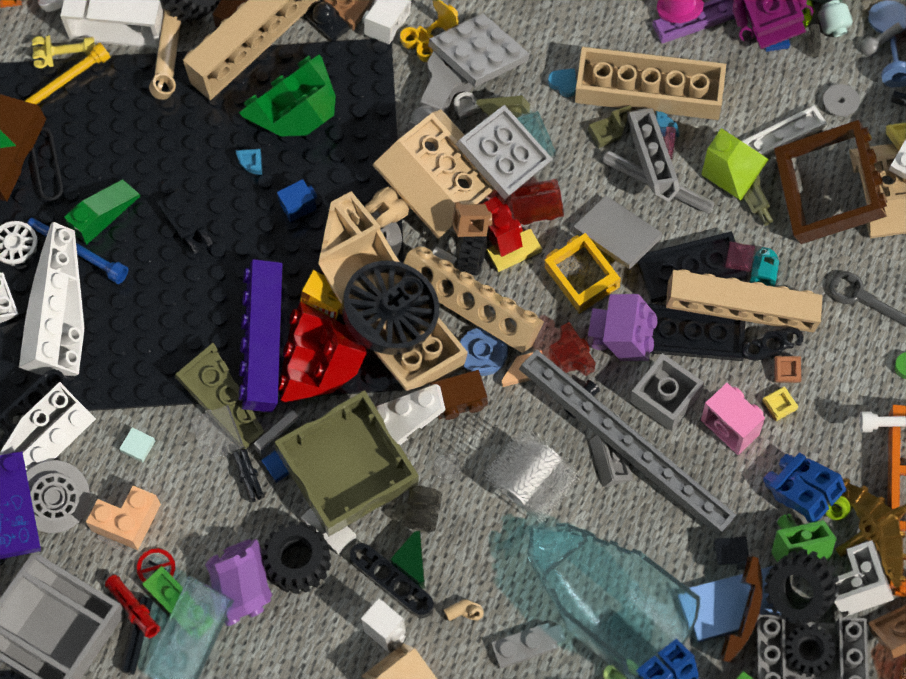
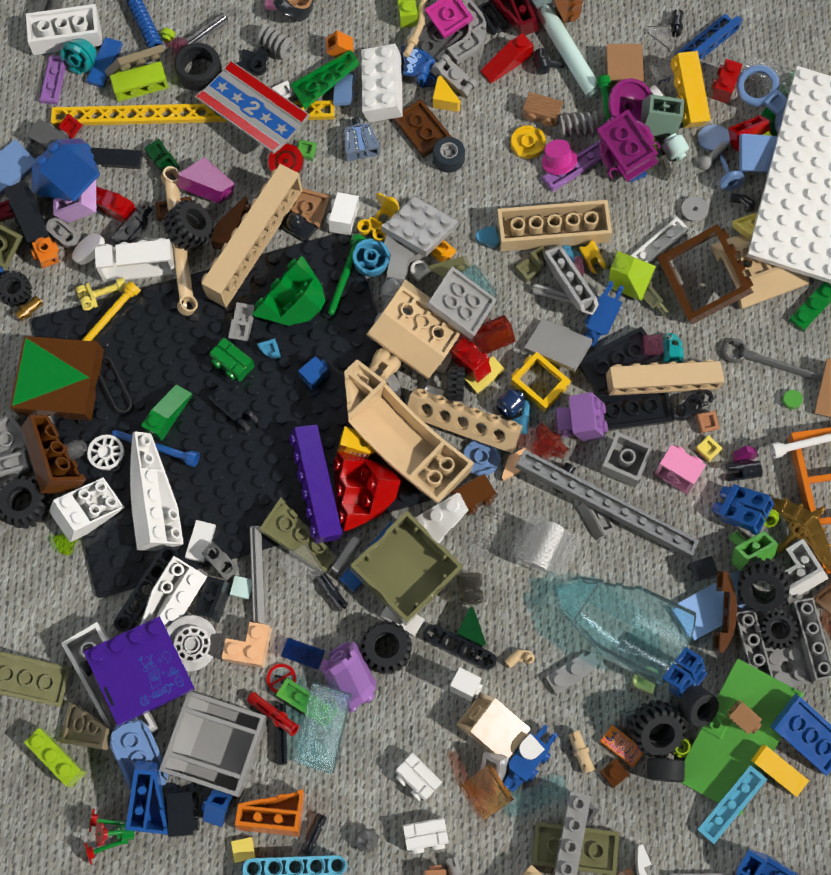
camera: 15 degrees left, 5 degrees up
(97, 450) = (213, 599): none -> black hinge
(100, 376) = (200, 540): none -> white tile
(116, 403) = (220, 561): none -> dark grey leg
(159, 432) = (257, 575): none -> light grey axle
(190, 542) = (303, 653): none -> clear blue plate
(199, 164) = (231, 360): none -> green brick
(225, 121) = (242, 322): none -> light grey slope
(390, 306) = (400, 438): black piece -> none
(395, 54) = (355, 239): none -> green piece
(406, 75) = (371, 257): none -> dark azure cylinder
(471, 220) = (451, 361): medium nougat brick -> none
(501, 86) = (443, 251): none -> light orange tile
(536, 290) = (510, 402): none -> dark blue head
(549, 315) = (524, 418): none -> dark azure bar
(686, 206) = (604, 315): none -> blue hinge
(691, 132) = (592, 256): none -> yellow piece
(824, 440) = (747, 470): none -> black hinge
(826, 419) = (744, 453): none -> magenta tile

